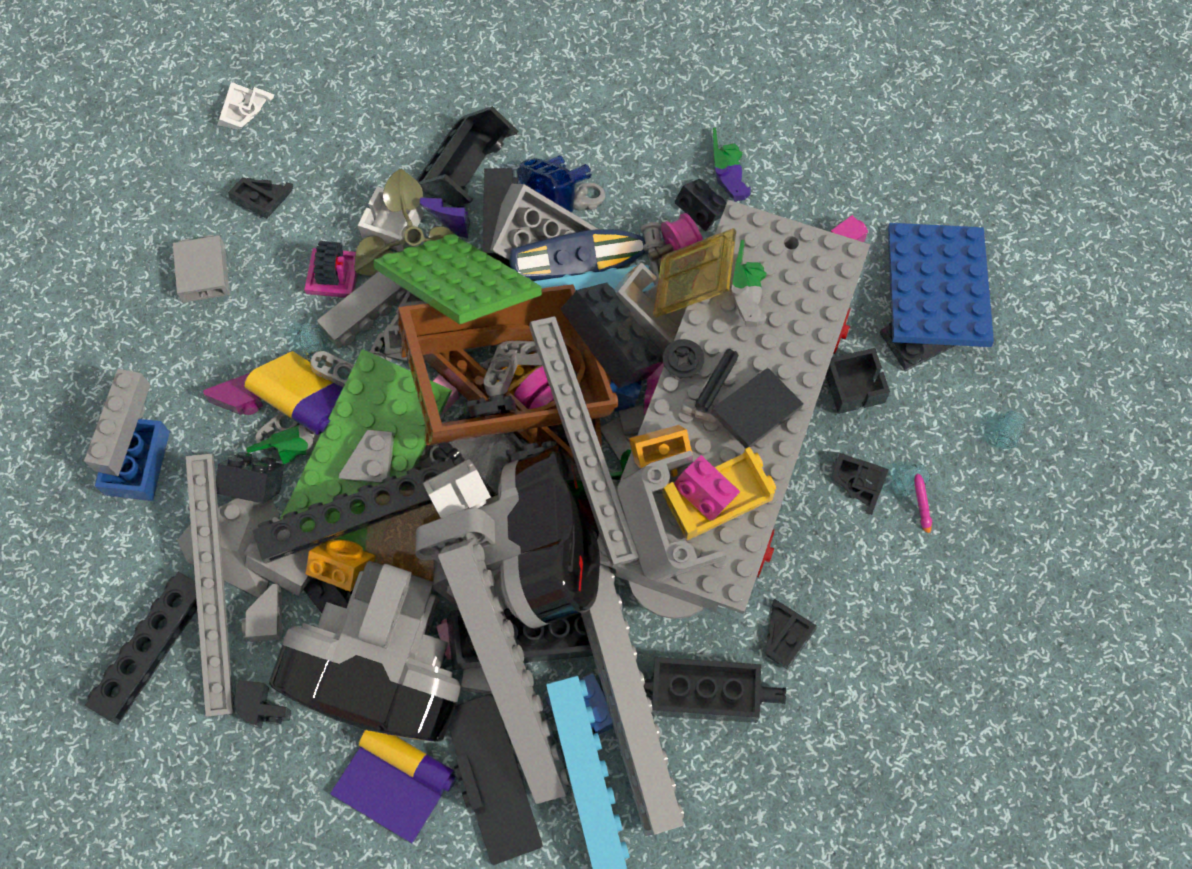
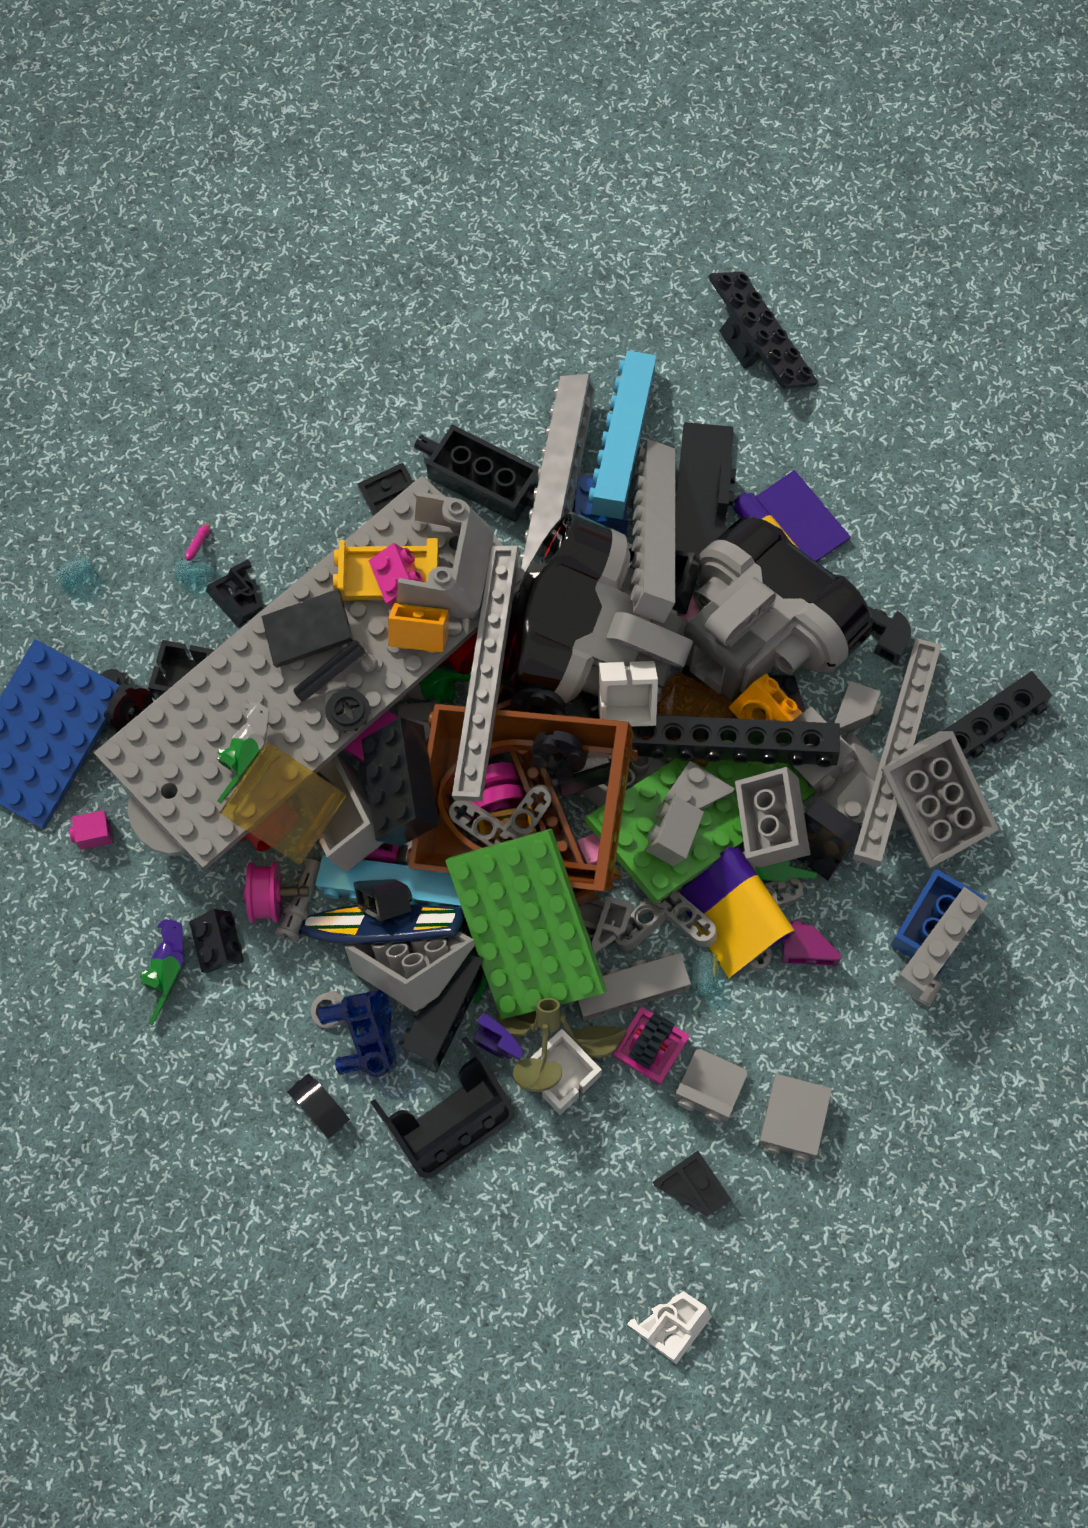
camera: 155 degrees left, 0 degrees up
(159, 549) = (939, 797): none -> light grey slope
(274, 260) = (710, 1086): none -> light grey bracket
(292, 456) = (772, 817): none -> light grey brick
(369, 401) = (673, 830): none -> light grey brick
(561, 123) = (318, 1105): none -> black brick
(583, 262) = (383, 898): none -> black slope
(880, 329) = (125, 698): none -> black plate

